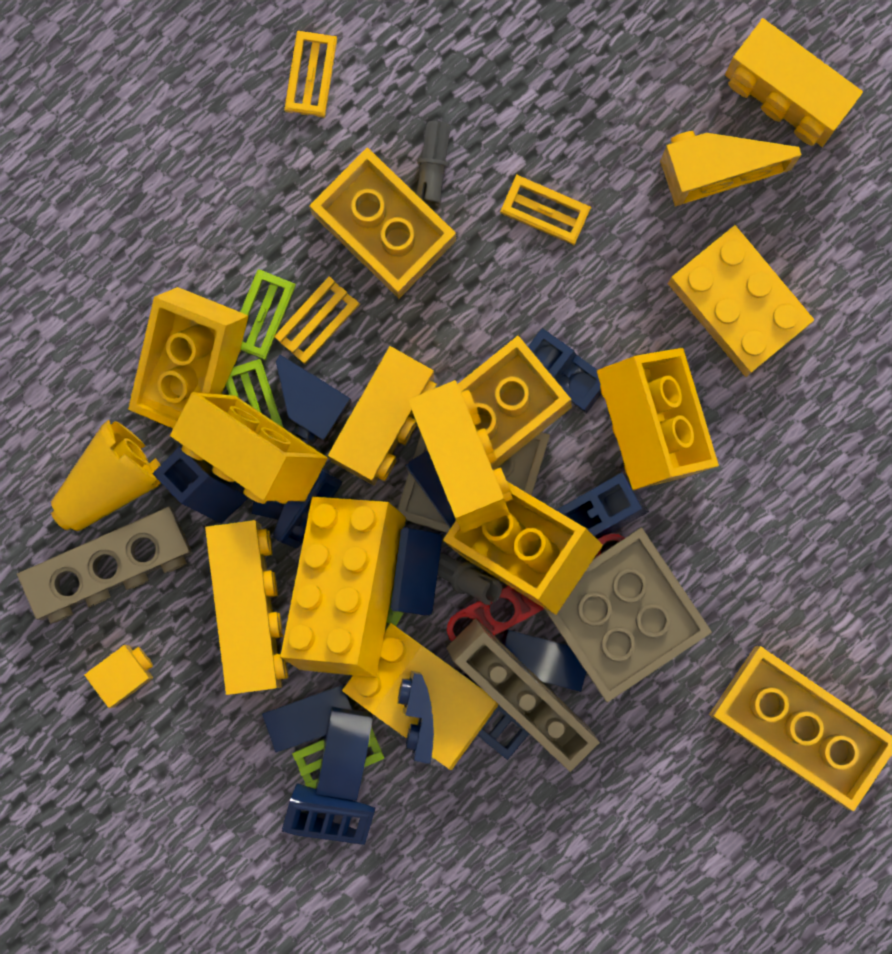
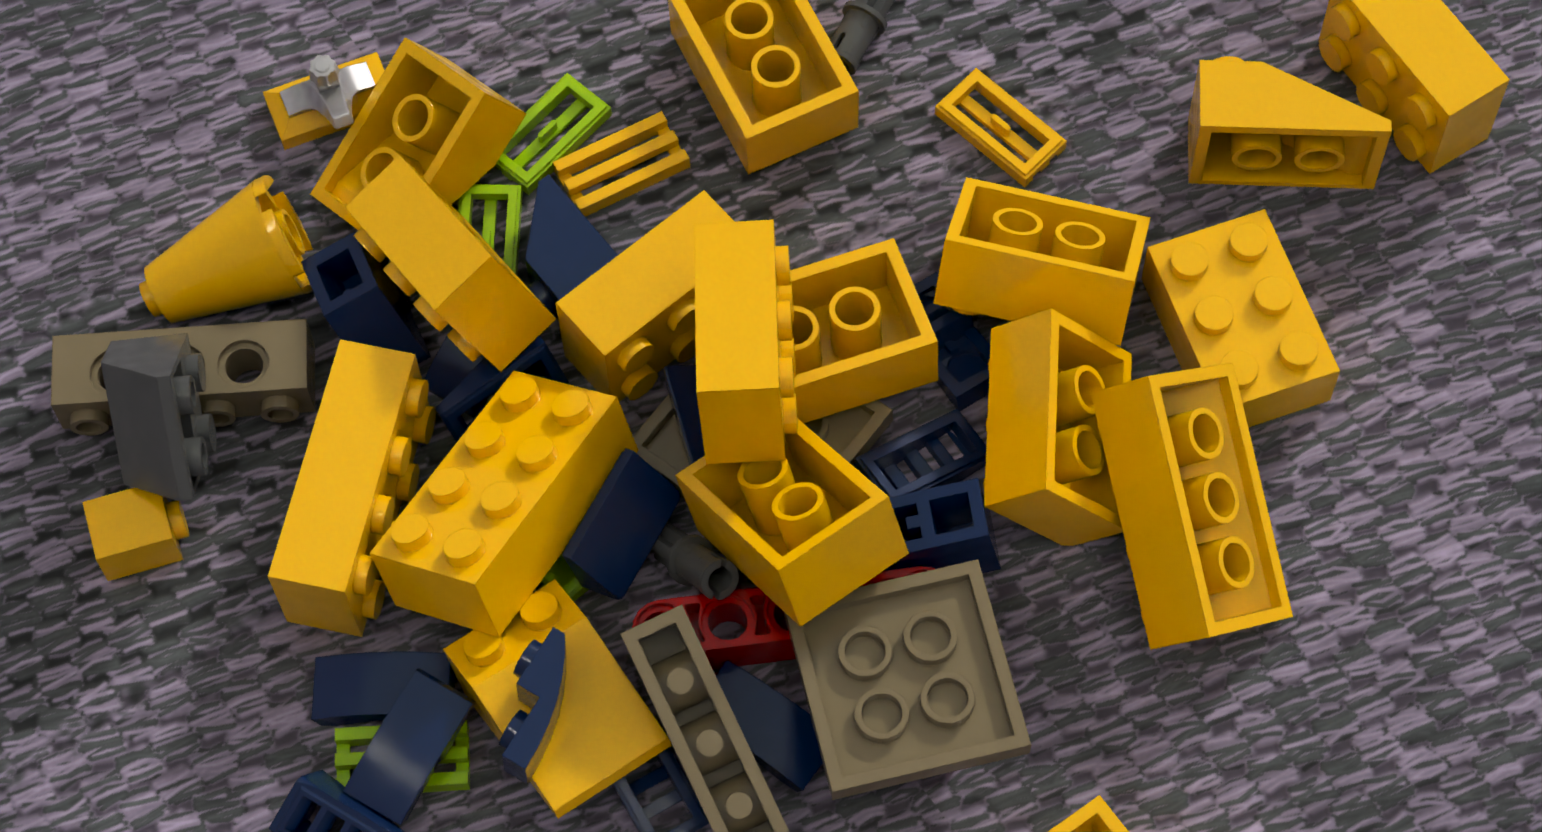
camera: 20 degrees right, 20 degrees down
(110, 609) = (159, 414): none -> dark grey slope
(114, 342) = (323, 100): none -> piece
(556, 487) = (881, 463): none -> dark blue slope
(609, 307) = (1035, 252): none -> yellow brick
(753, 440) = (1191, 504): none -> yellow slope

